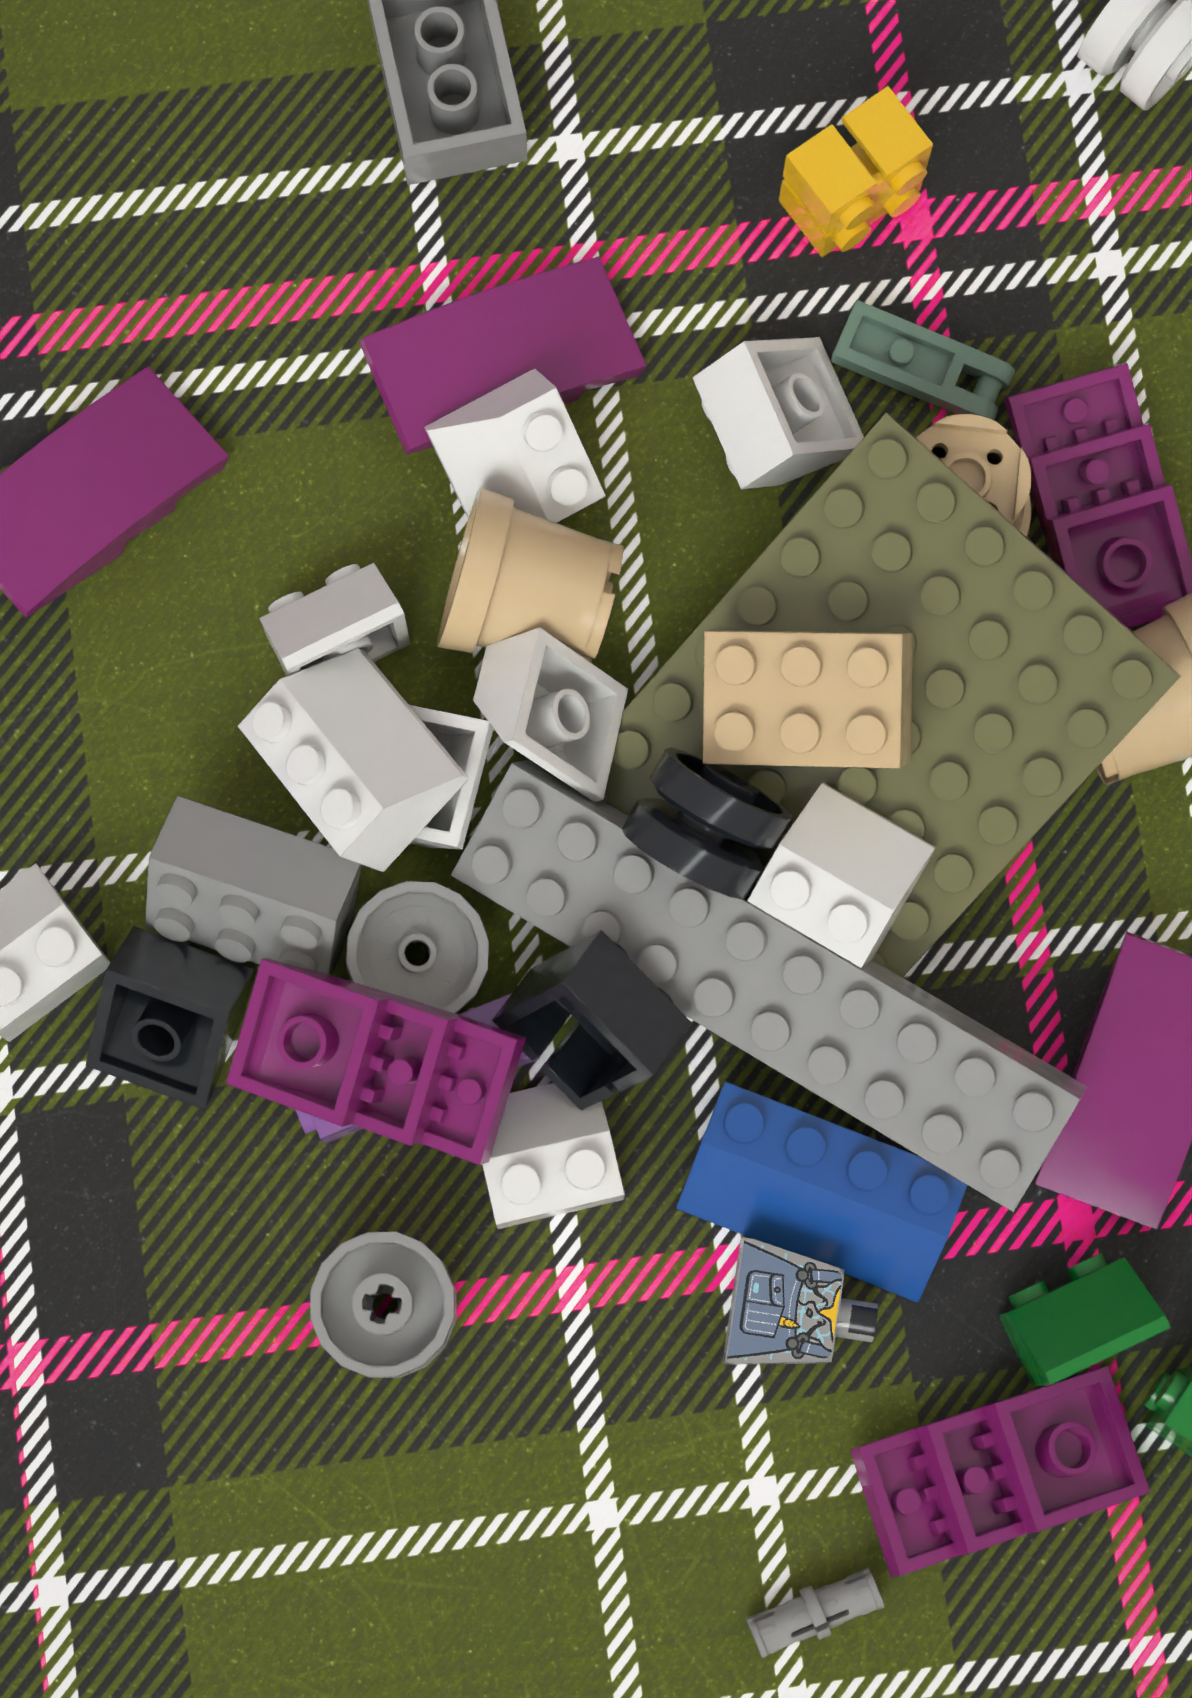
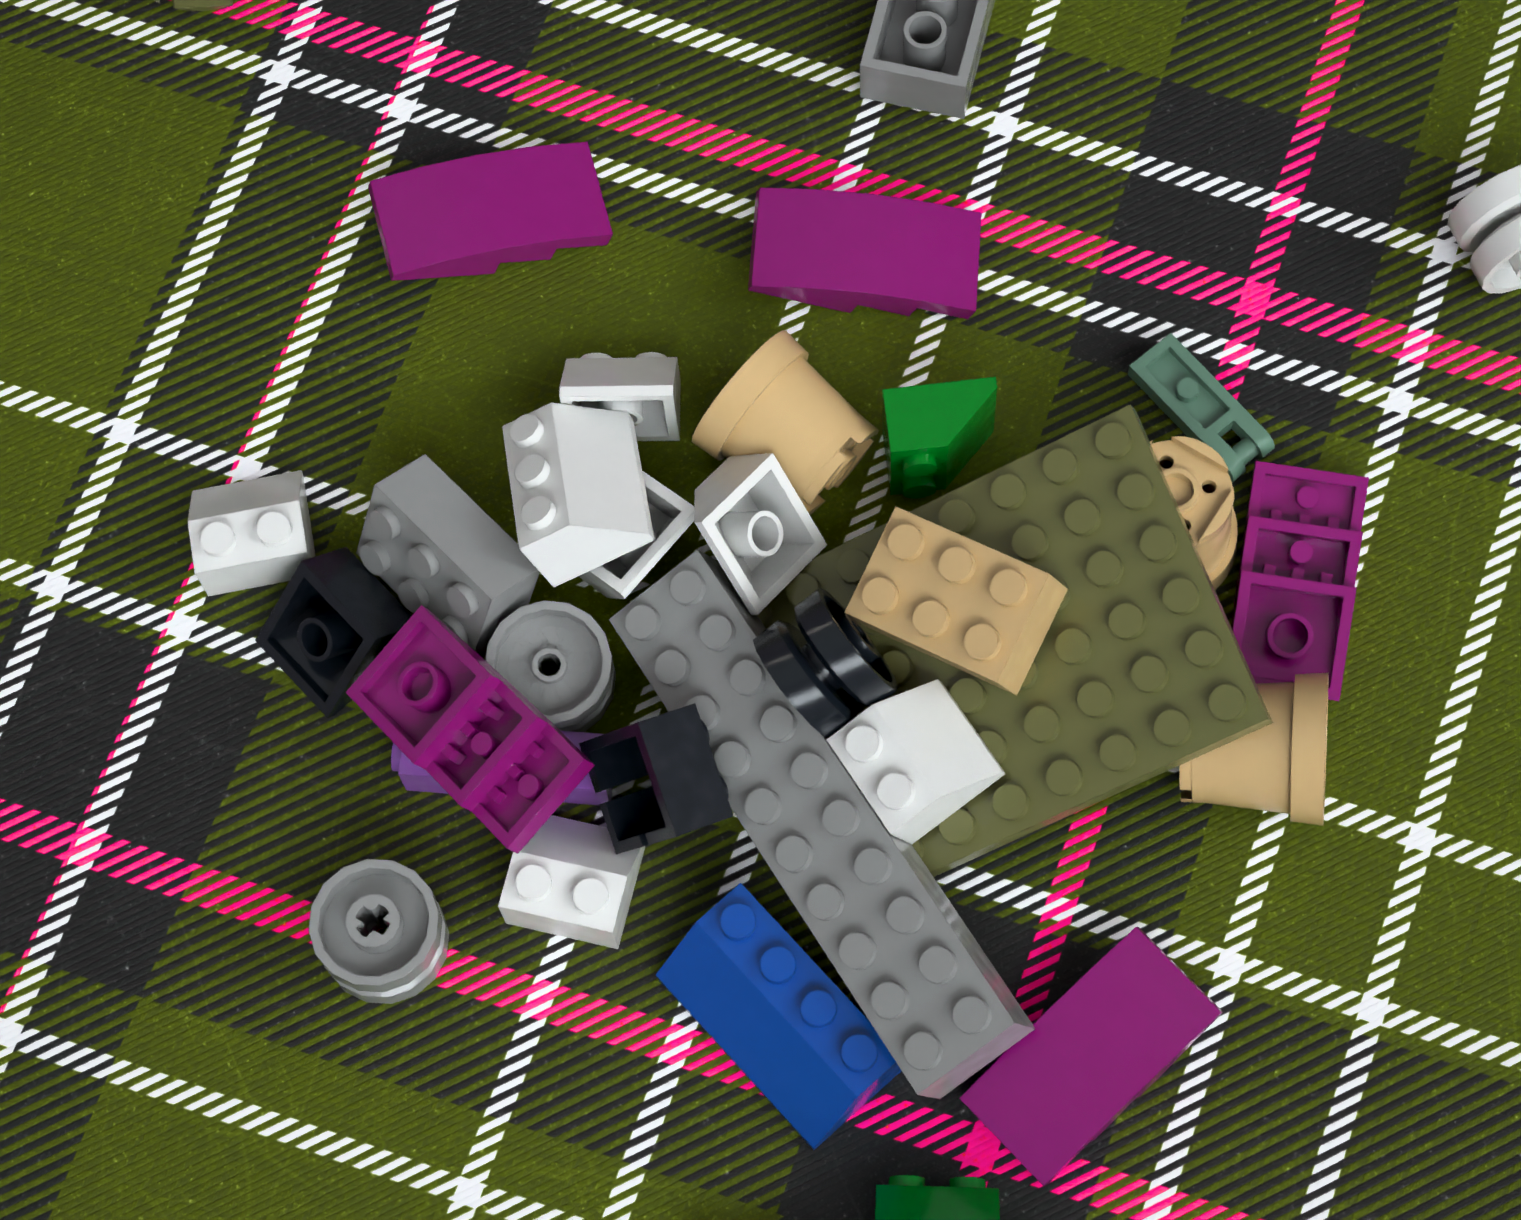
camera: 35 degrees right, 10 degrees down
(517, 446) = (836, 320): white slope -> none
(673, 522) = (934, 432): none -> green slope
(778, 410) = (1058, 381): white slope -> none
(790, 1309) = (701, 1097): torso -> none
(842, 189) = (1202, 252): yellow piece -> none

